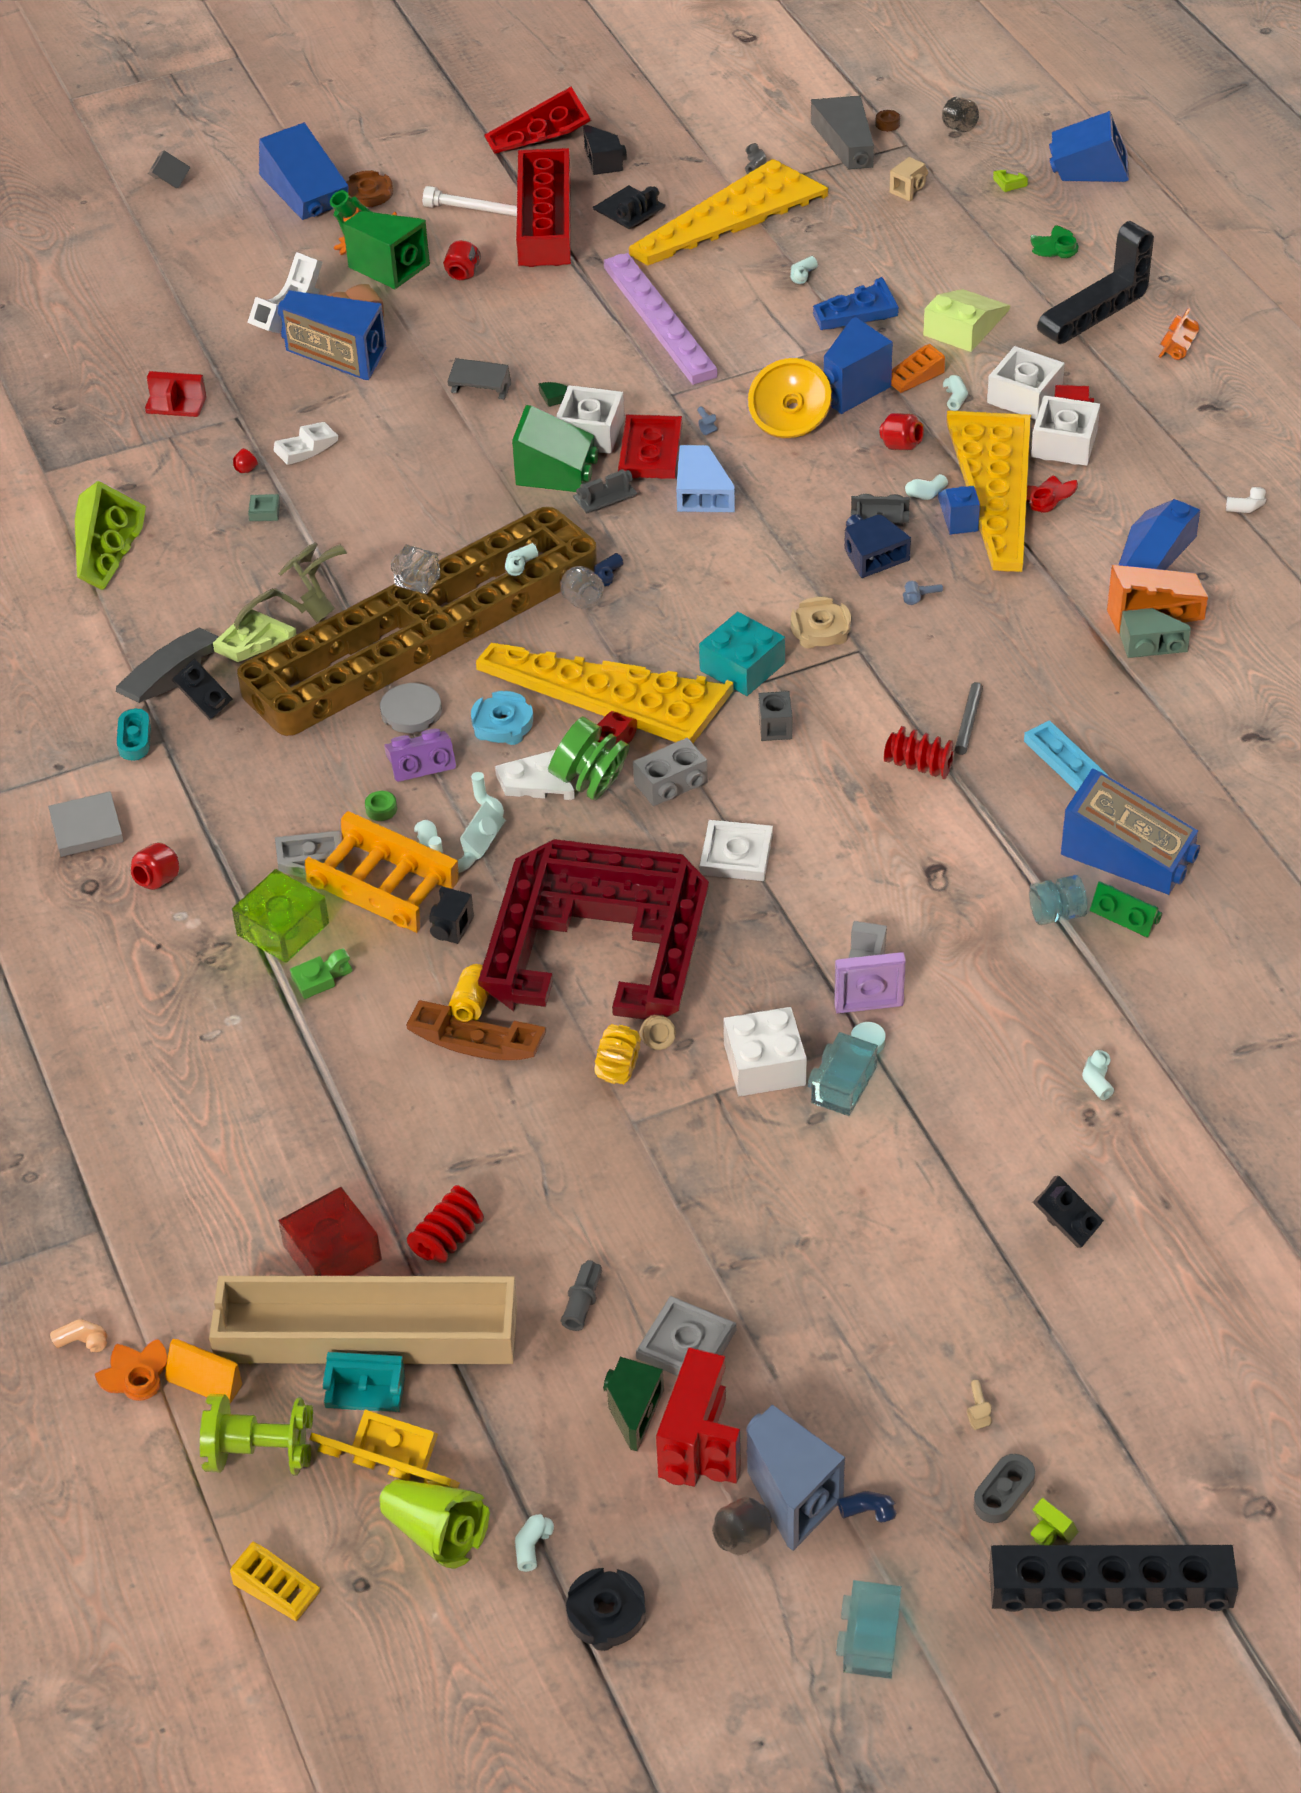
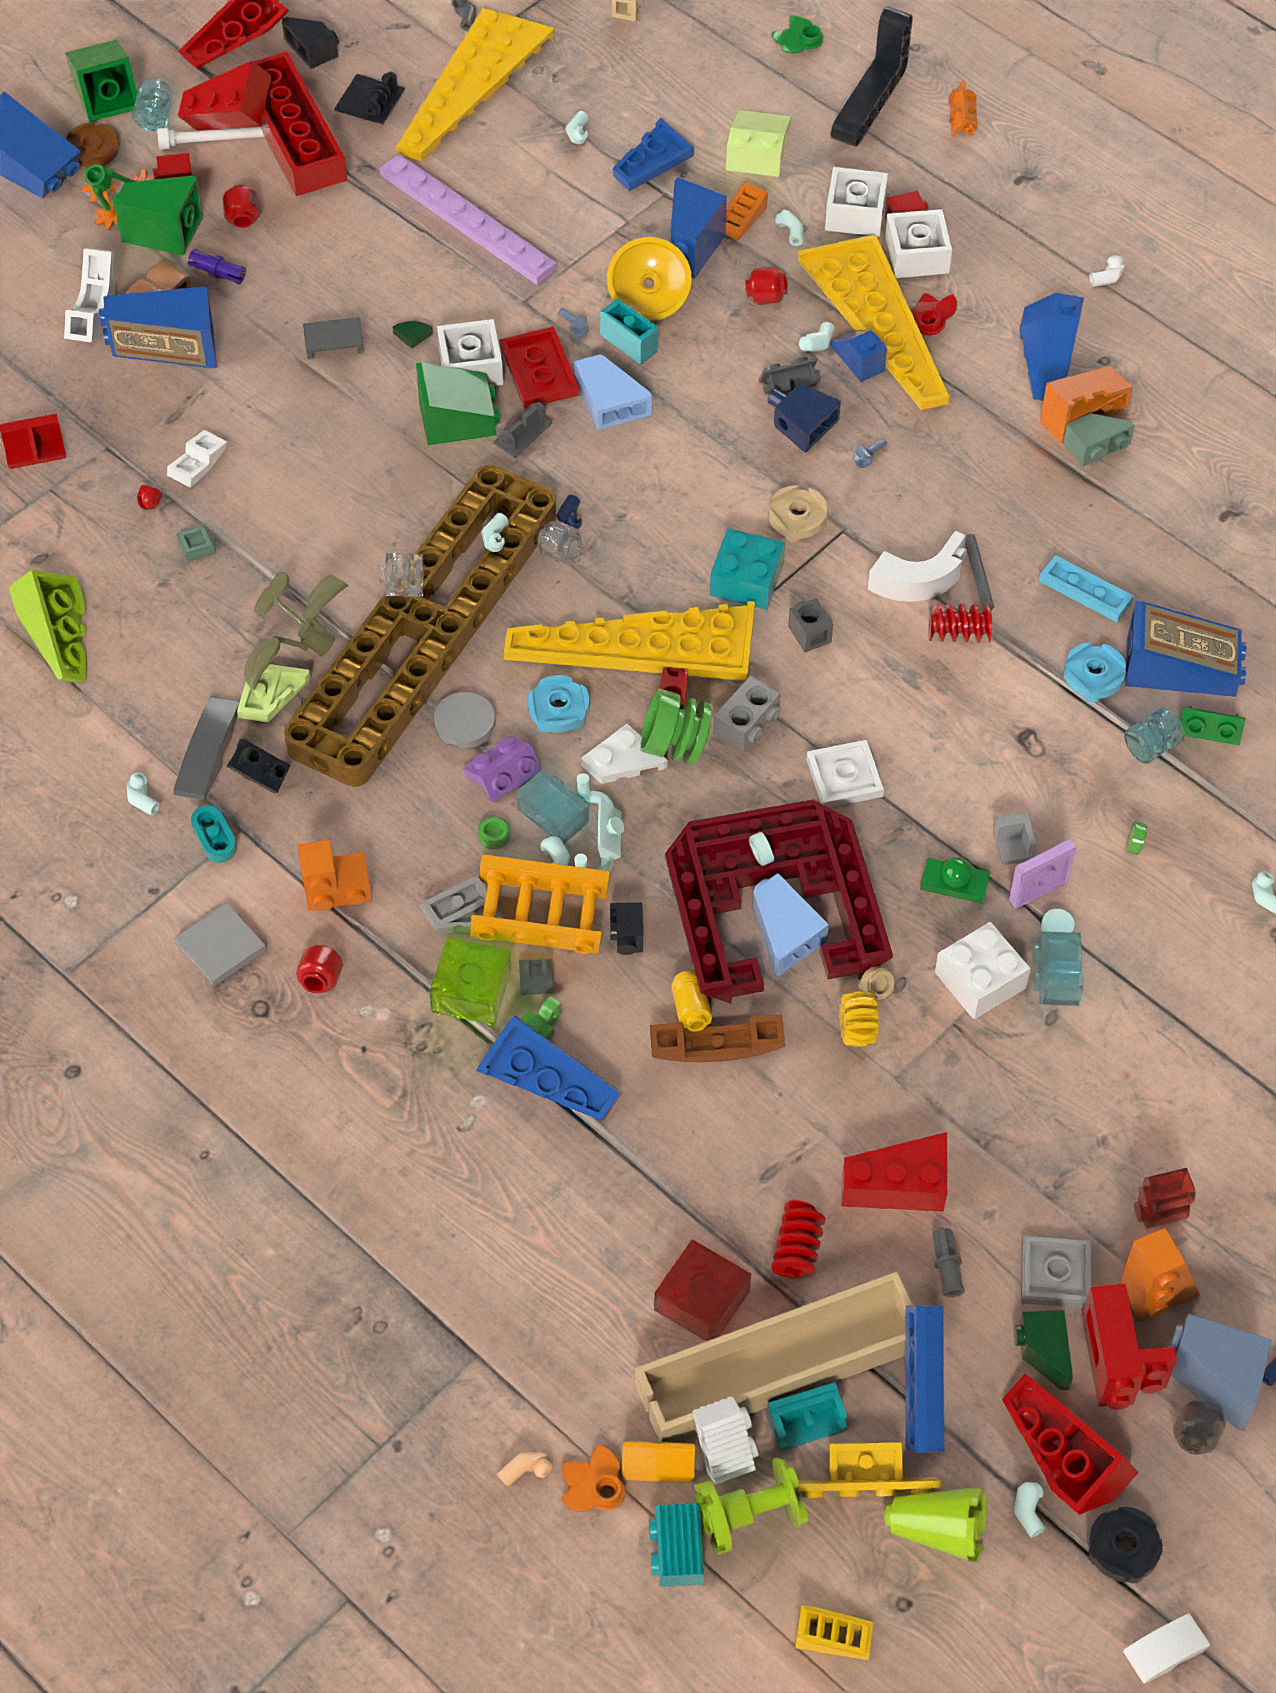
camera: 25 degrees left, 10 degrees up
(91, 686) = (138, 794): none -> light aqua arm
(173, 1451) = (678, 1545): none -> teal brick
(206, 797) = (331, 879): none -> orange brick
(265, 1369) = (724, 1440): none -> white brick
(303, 1009) = (539, 1066): none -> blue wing
(345, 932) = (536, 977): none -> dark grey tile
(404, 141) = (103, 79): none -> green slope
(414, 301) = (216, 266): none -> dark purple pin
(432, 217) = (172, 166): none -> red brick
(434, 166) = (152, 104): none -> clear light blue wheel
(444, 797) = (553, 806): none -> clear light blue brick
(486, 1380) = (924, 1378): none -> blue fence
(493, 172) = (227, 100): none -> red wedge
(576, 1202) = (898, 1176): none -> red wedge
(591, 1715) = (1166, 1648): none -> white slope
(598, 1505) = (1071, 1455): none -> red wedge
(599, 957) = (786, 923): none -> light blue slope
(606, 880) = (761, 849): none -> light aqua tile
(747, 435) = (629, 331): none -> teal brick
(776, 1366) = (1157, 1276): none -> orange wedge
(789, 968) = (955, 879): none -> green tile
(822, 1303) = (1165, 1198): none -> clear red brick
(907, 707) = (918, 580): none -> white arch
(989, 984) = (1136, 838): none -> bright green tile
(1032, 844) = (1092, 685): none -> medium azure plate

